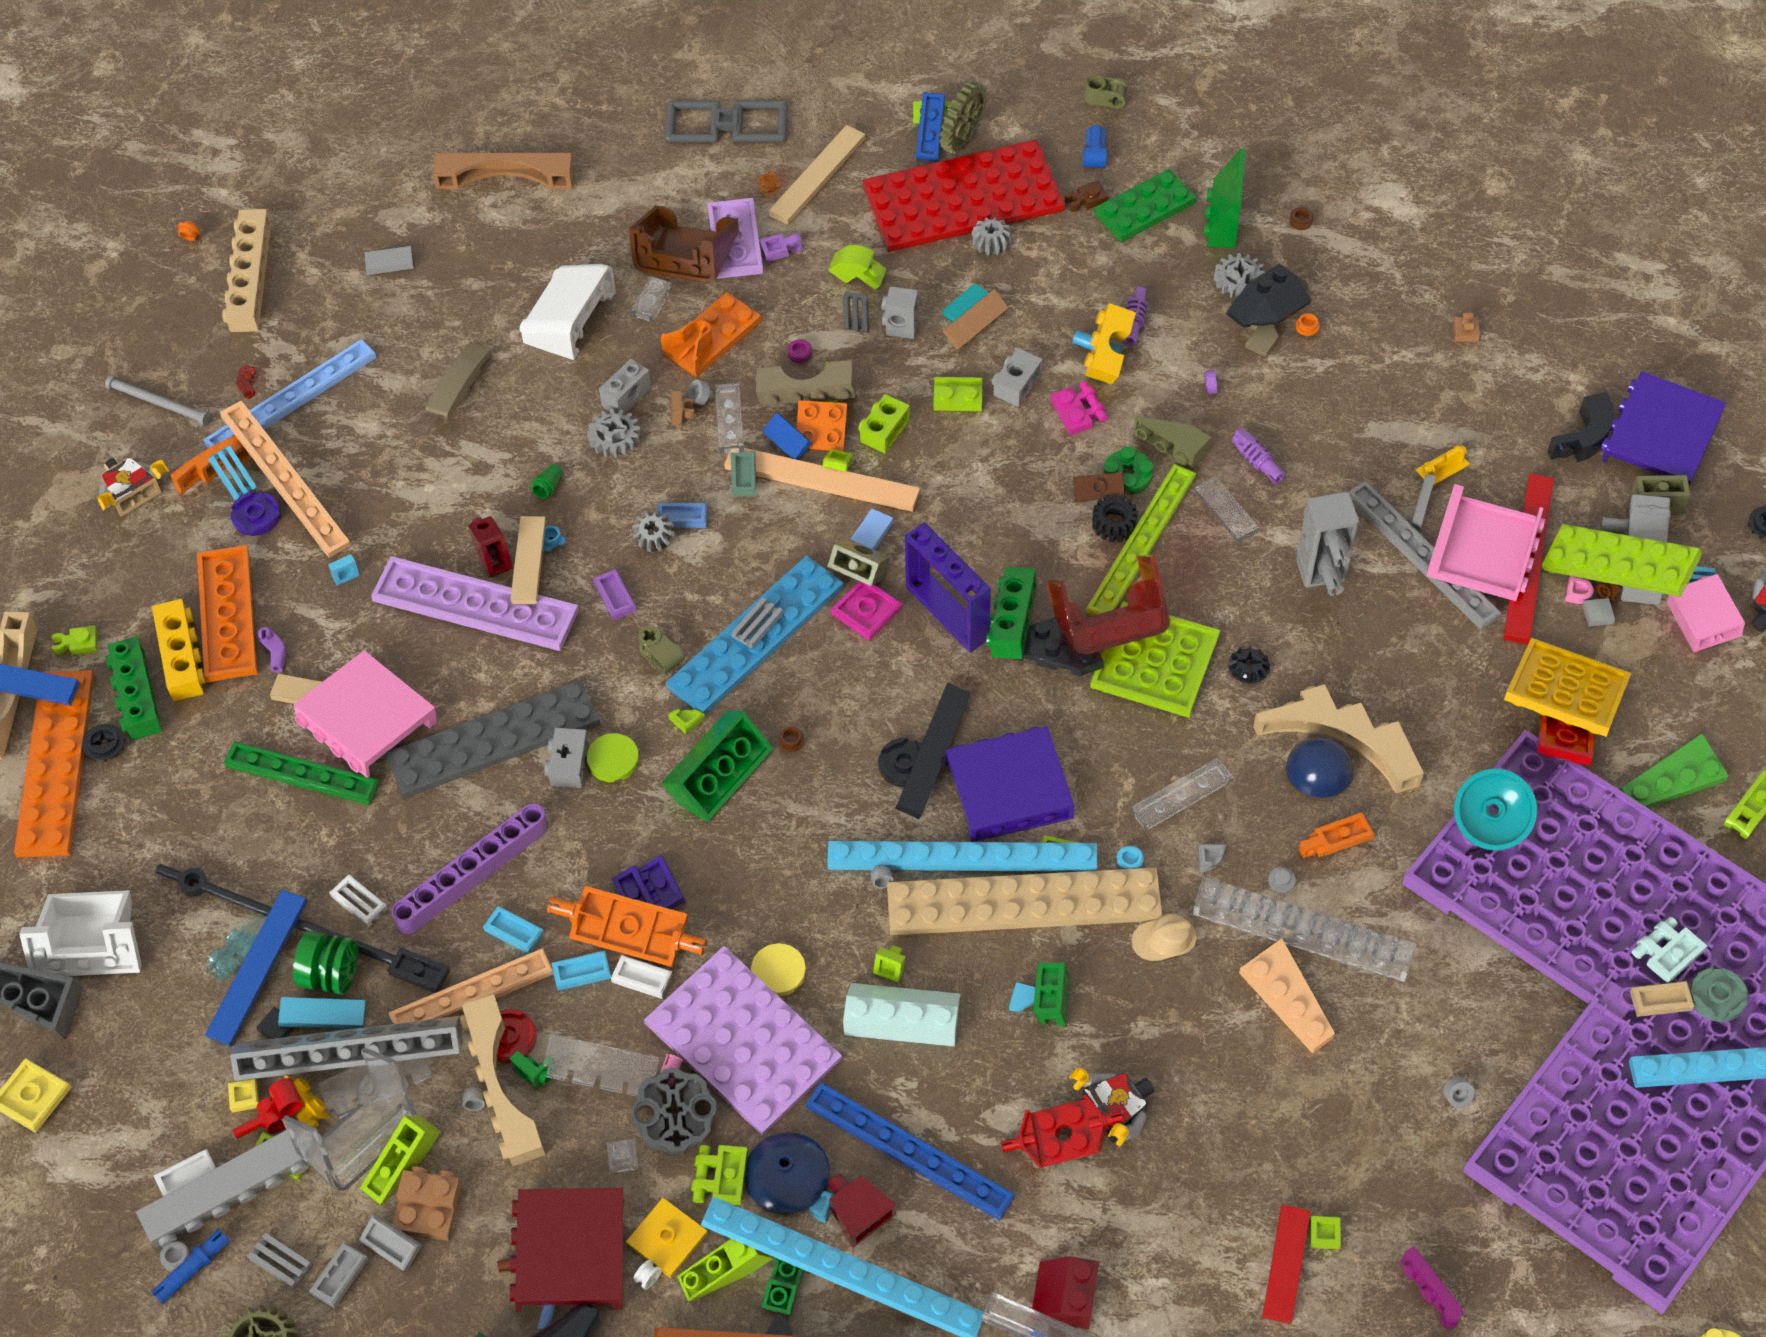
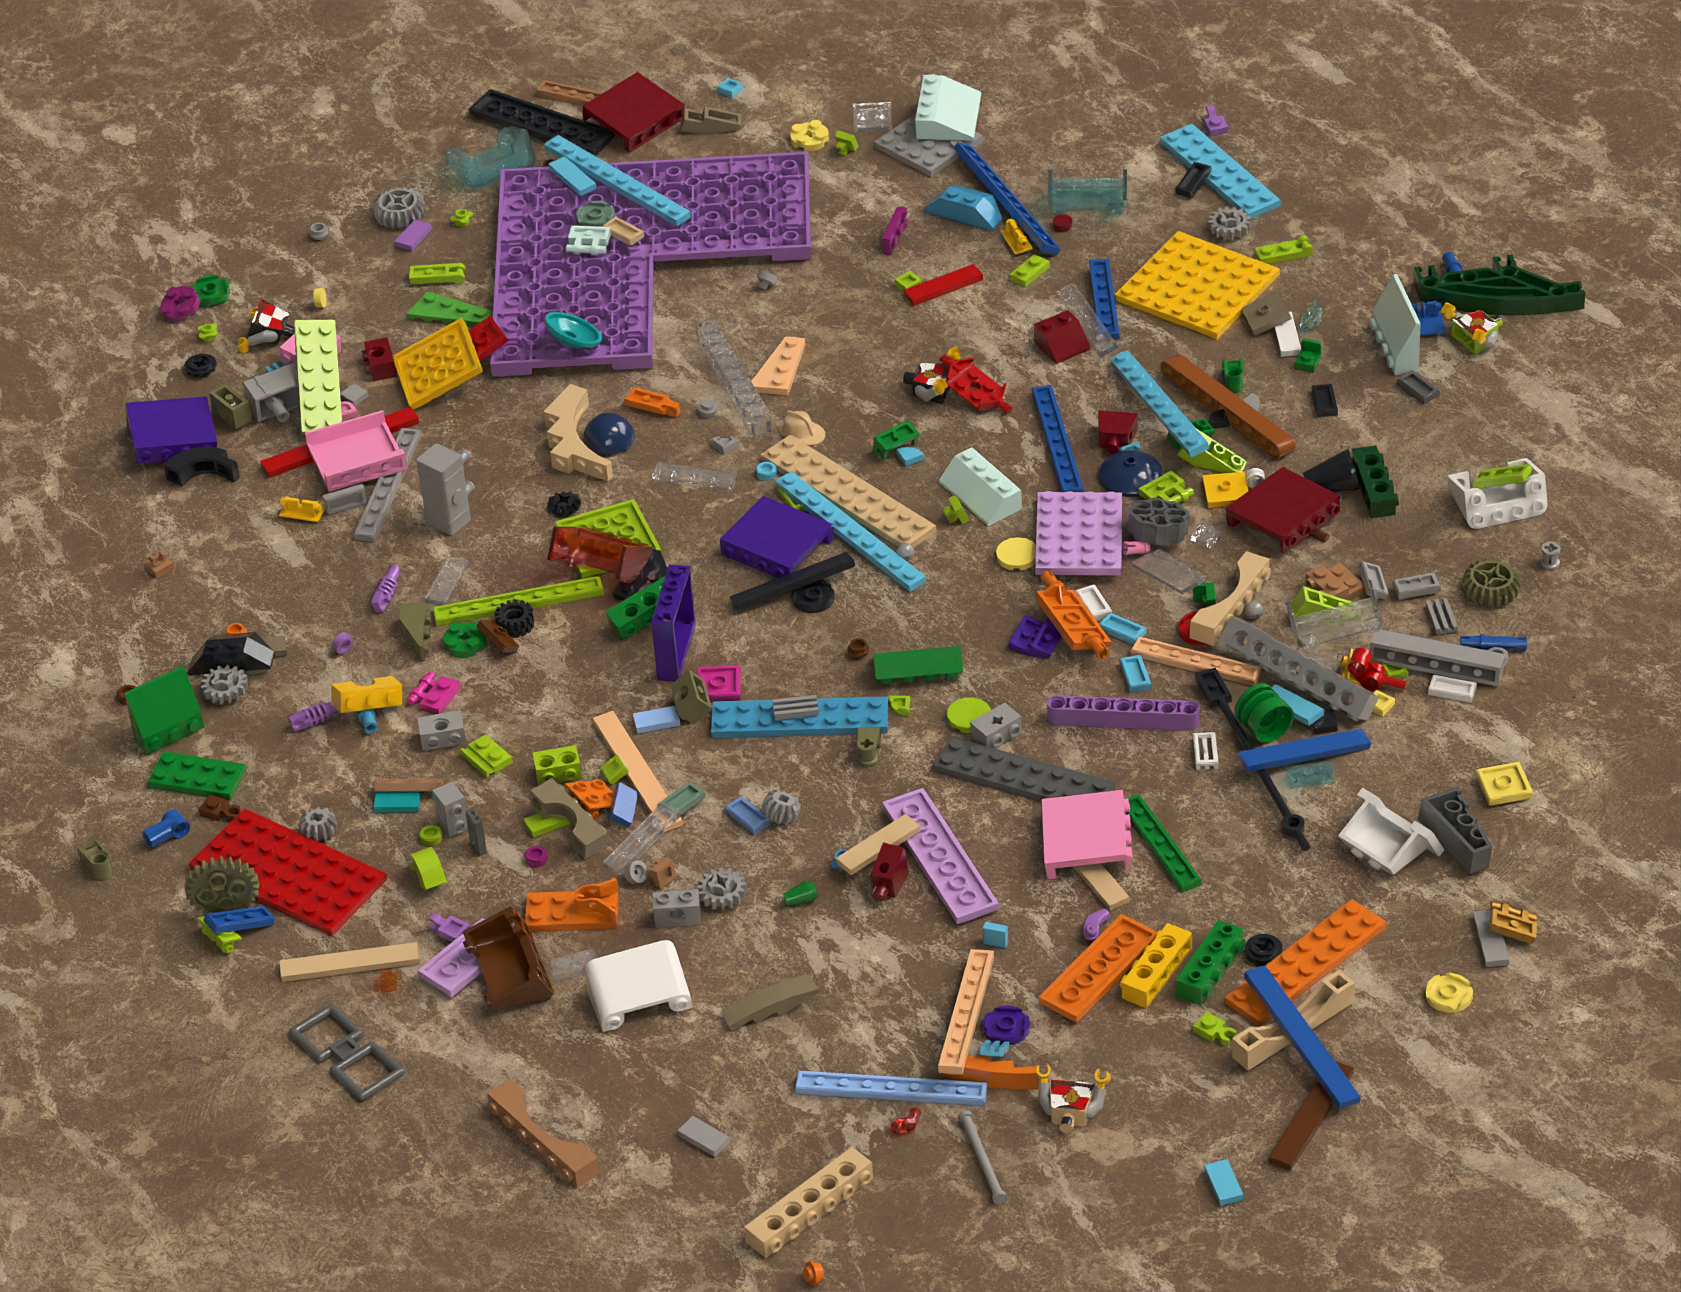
camera: 130 degrees left, 15 degrees down
(614, 594) = (849, 801): medium lavender tile -> none
(1649, 662) = (379, 359): none -> dark red brick

